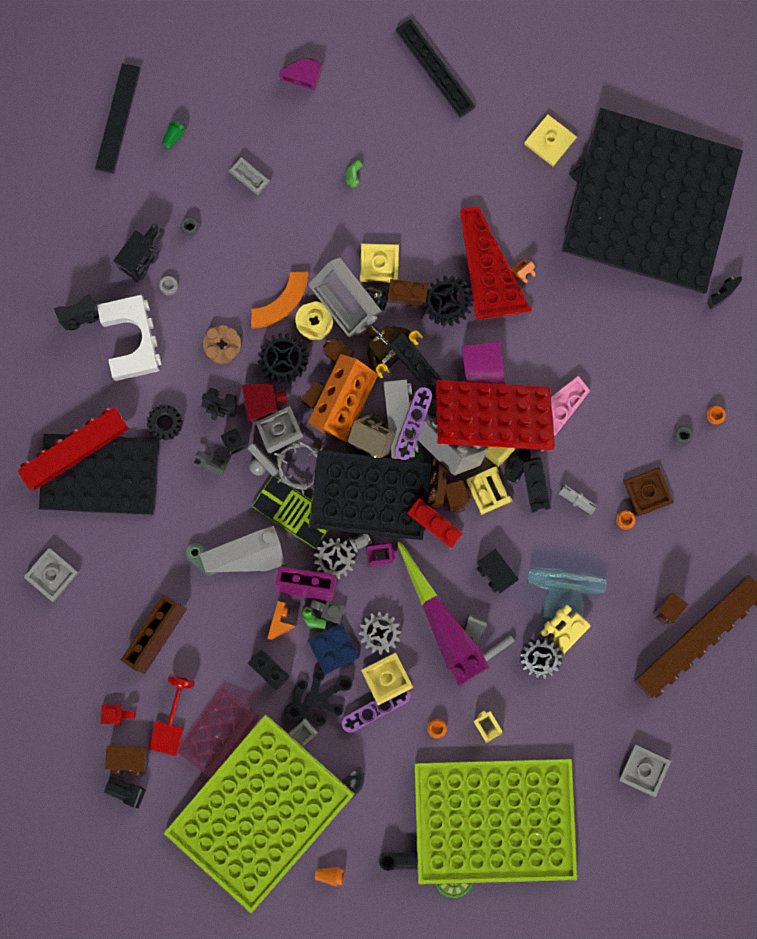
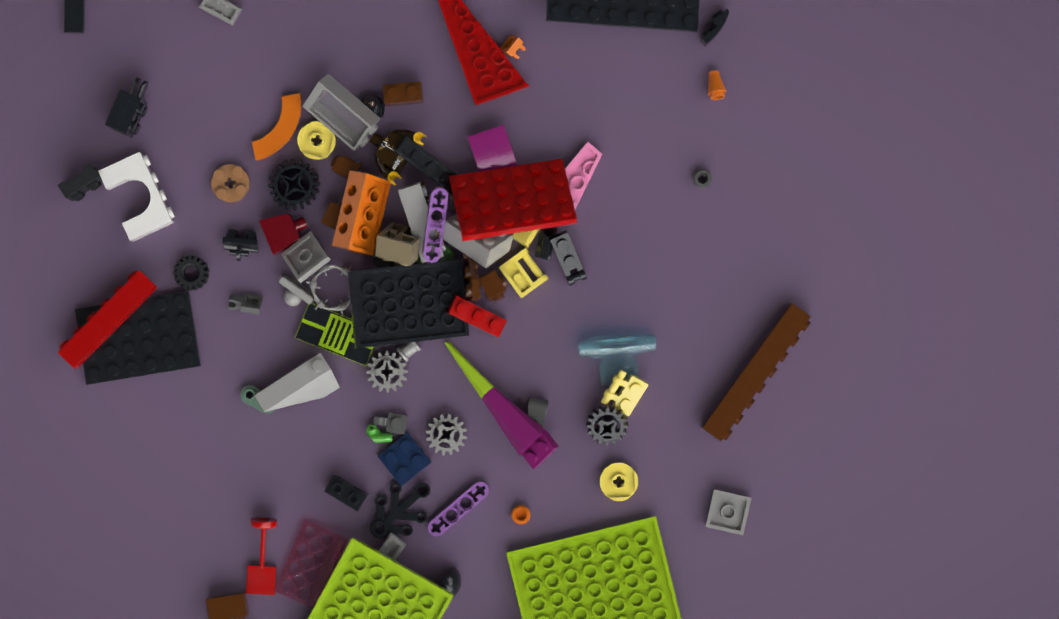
camera: 15 degrees left, 5 degrees up
(51, 575) = (113, 446): light grey plate -> none
(113, 714) = (205, 567): red plate -> none
(153, 634) = (227, 482): reddish brown brick -> none
(168, 285) = (164, 135): light grey tile -> none
(190, 221) = (172, 65): dark grey plate -> none
(233, 441) = (263, 278): black brick -> none
(277, 626) = (345, 450): orange slope -> none
(306, 584) = (364, 402): magenta brick -> none
(379, 262) = (368, 69): light yellow plate -> none
(380, 555) = (431, 358): magenta window -> none
(387, 679) = (462, 477): light yellow plate -> none
(444, 308) = (446, 86): black gear -> none
(487, 726) = (568, 502): light yellow window -> none
(496, 571) = (547, 351): black brick -> none
(499, 647) = (564, 424): light grey bar -> none
(550, 710) = (627, 488): none -> light yellow plate
(577, 499) = (611, 263): light grey pin -> none
(625, 520) = (662, 273): orange plate -> none
(648, 492) = (679, 241): reddish brown tile -> none
(670, 609) = (721, 352): reddish brown brick -> none
(714, 348) = (716, 88): none -> orange cone
(716, 415) = (730, 151): orange plate -> none

